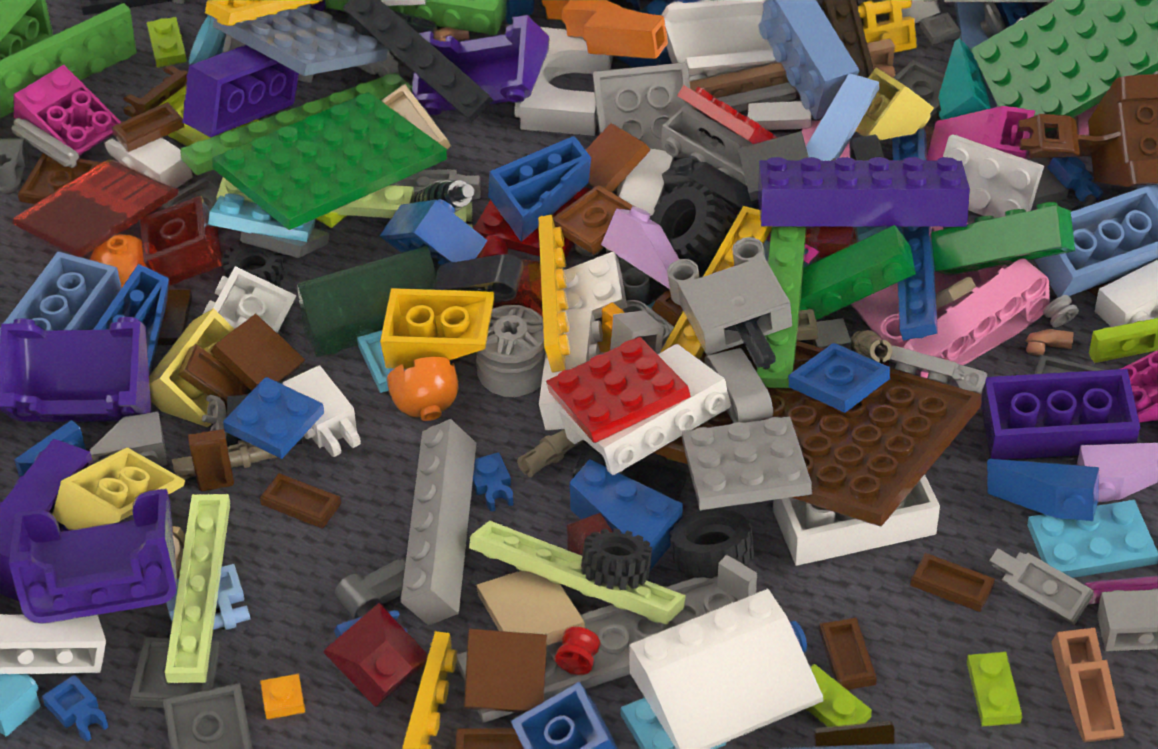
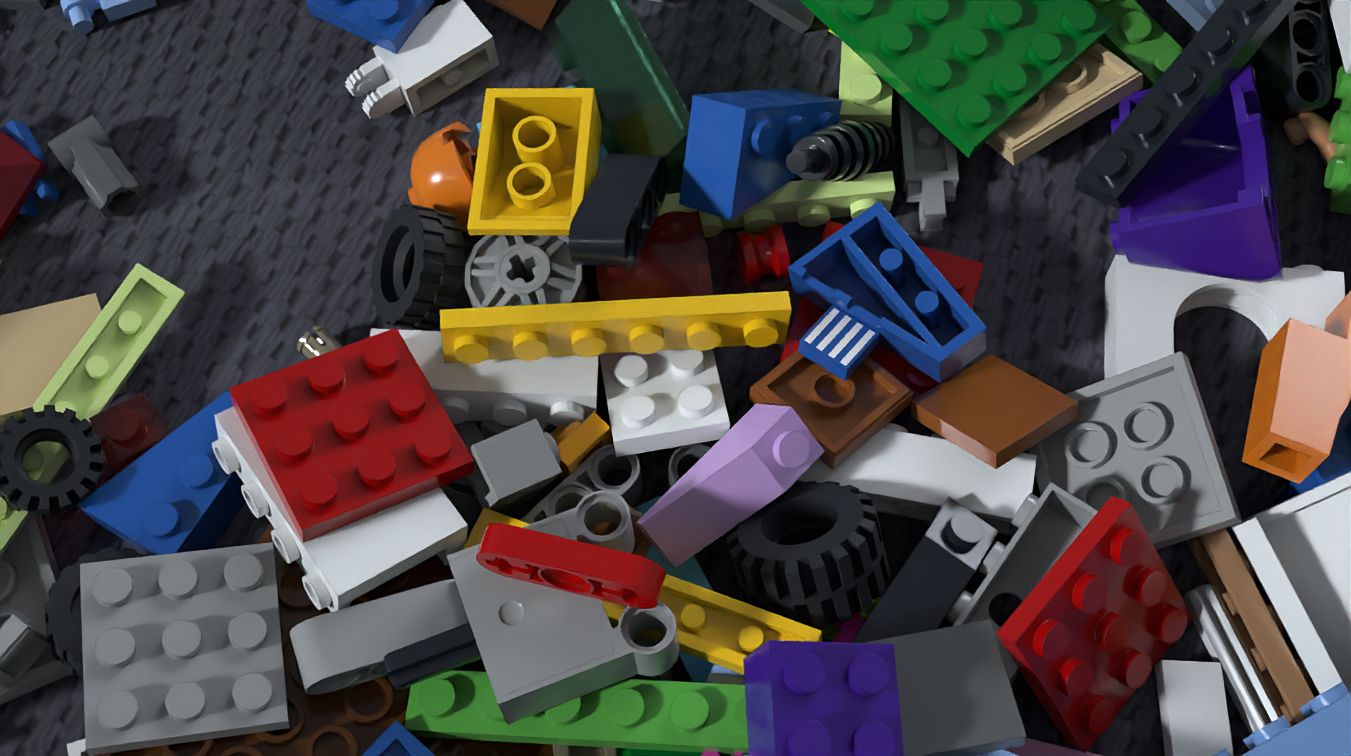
camera: 90 degrees right, 20 degrees up
(300, 500) = (277, 62): reddish brown tile -> none
(439, 523) = (193, 226): light grey brick -> none
(491, 423) = (417, 267): none -> black tyre
(492, 478) = (305, 295): blue plate -> none
(567, 208) = (838, 342): none -> blue tile
(717, 267) = (571, 566): none -> red beam

